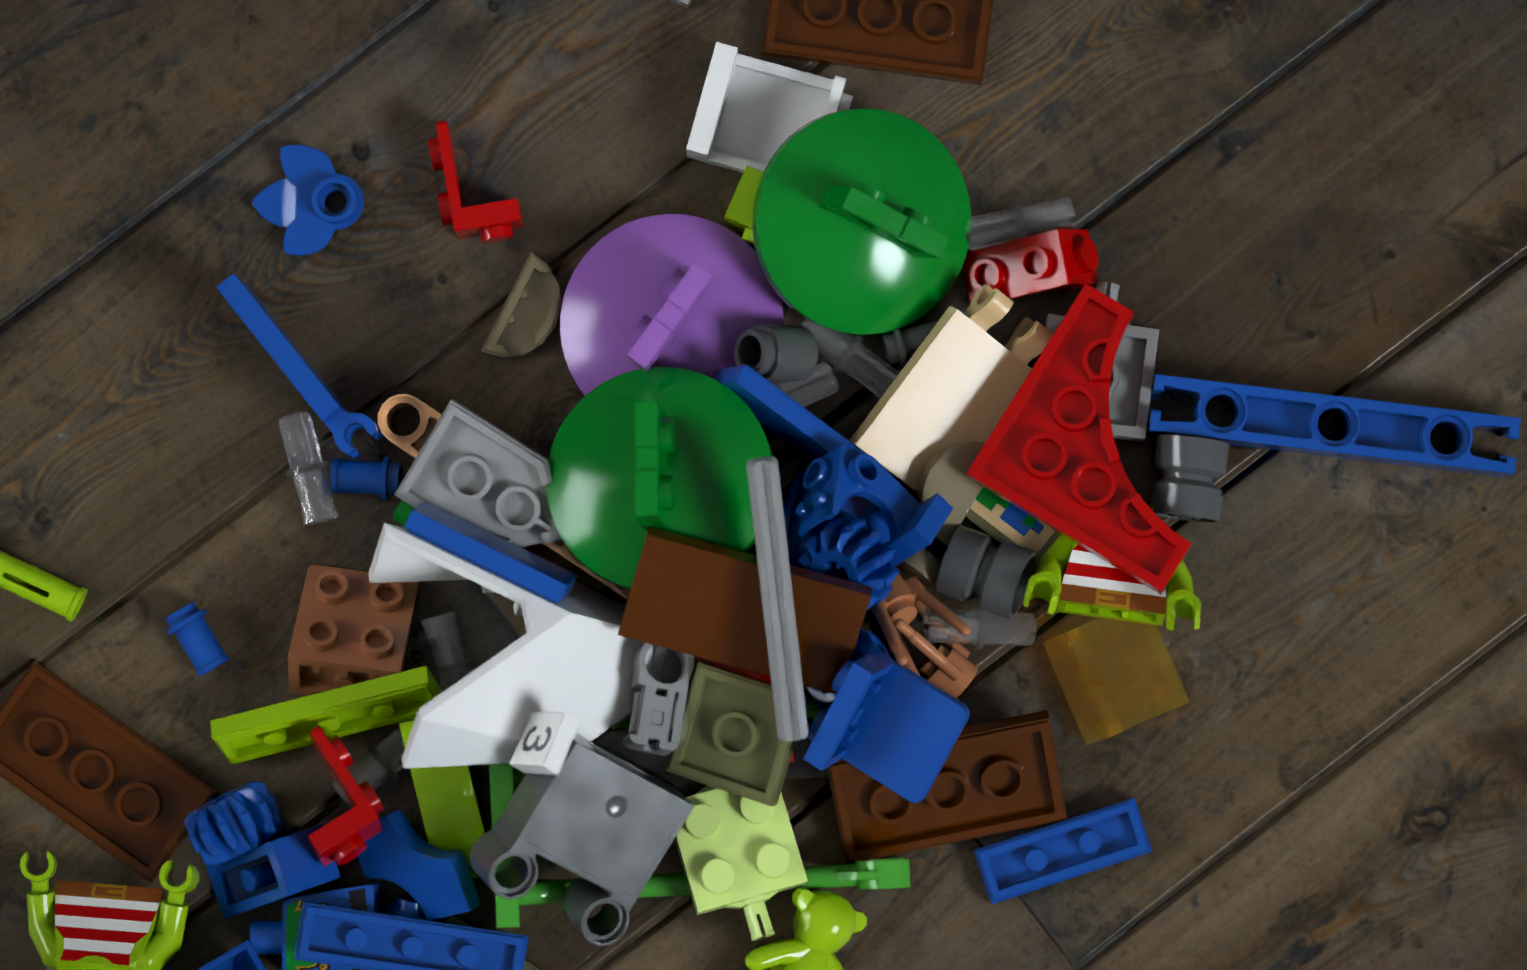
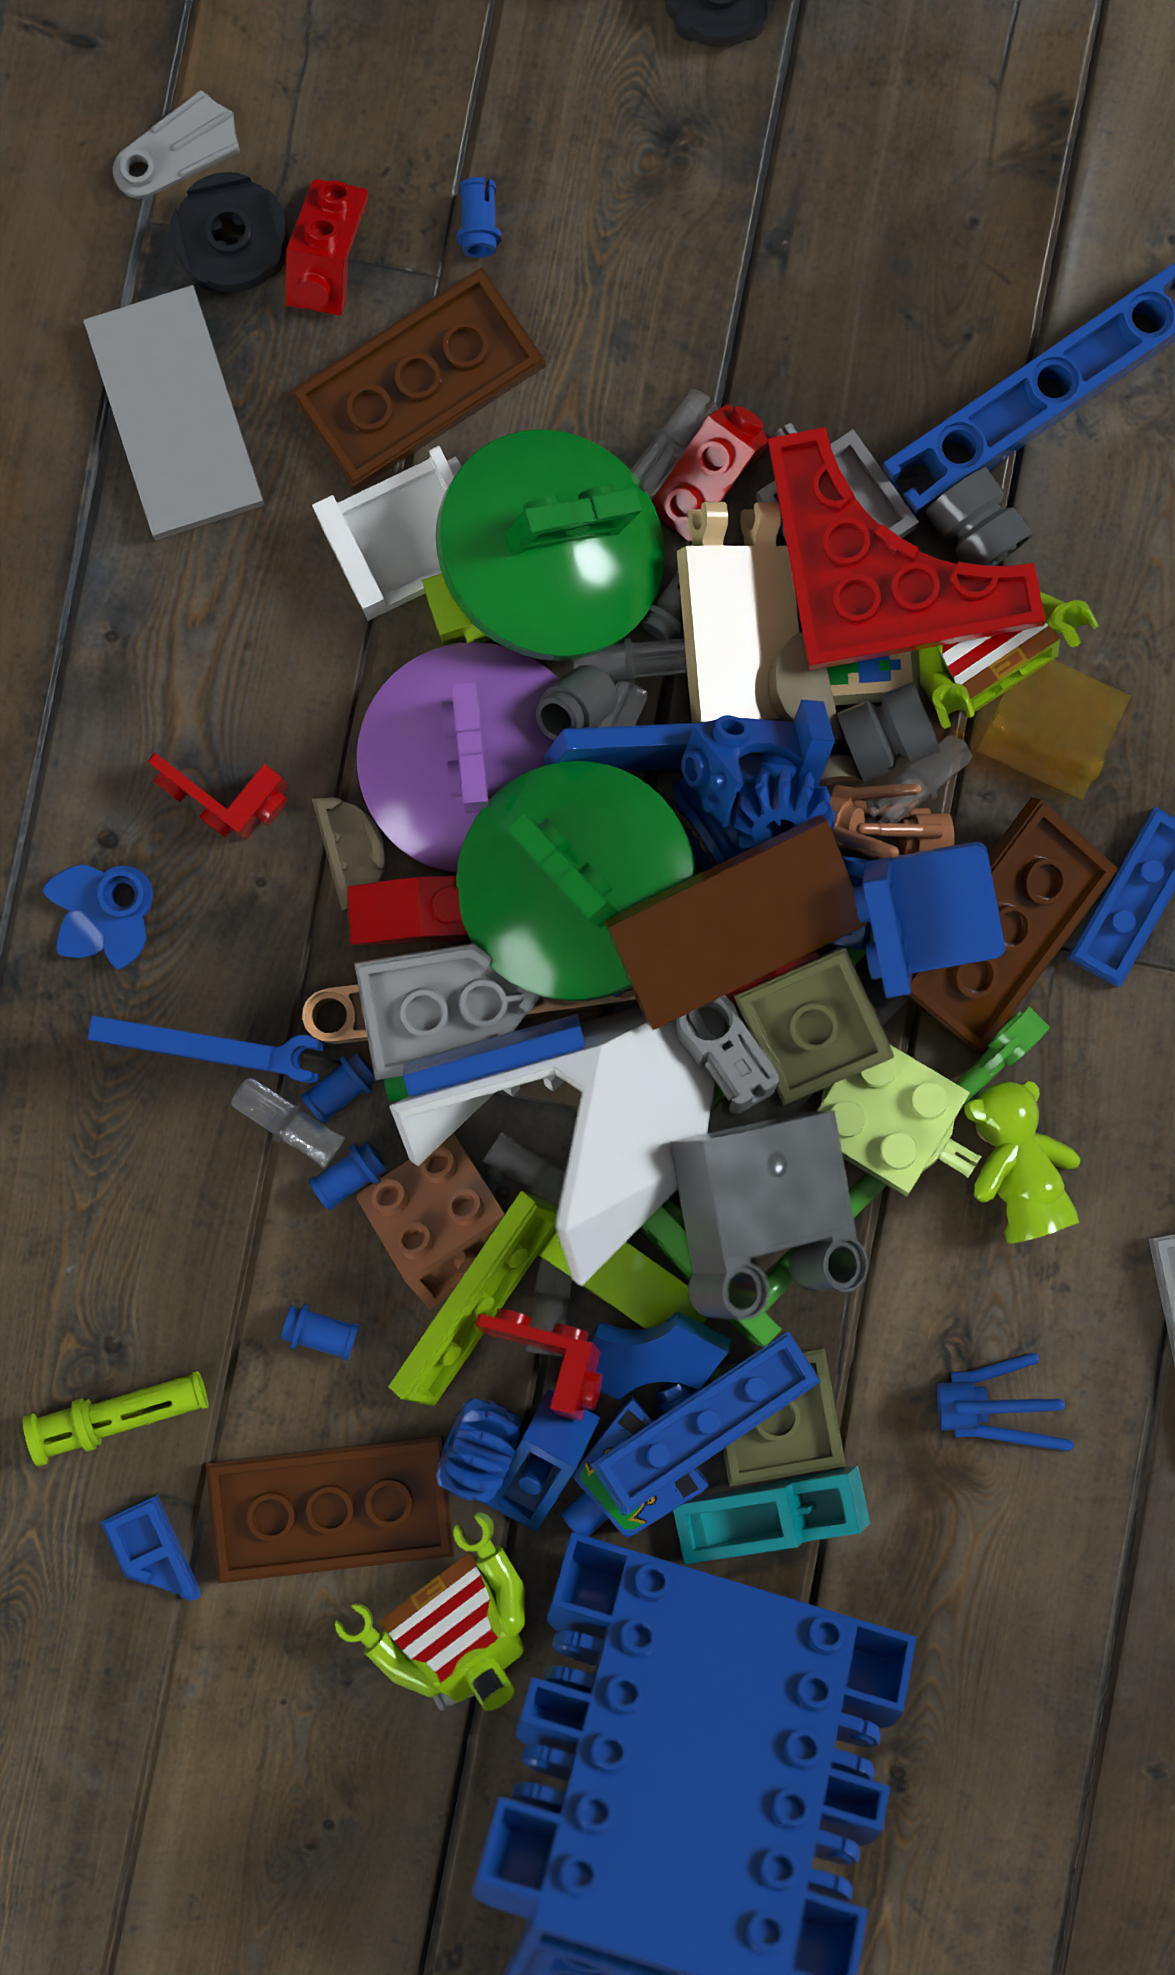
camera: 45 degrees left, 0 degrees up
(317, 545) = (348, 1175): none -> blue pin
(522, 392) = (405, 911): none -> red slope
(545, 743) = (677, 1164): white tile -> none
(777, 598) = (757, 885): light grey axle -> none

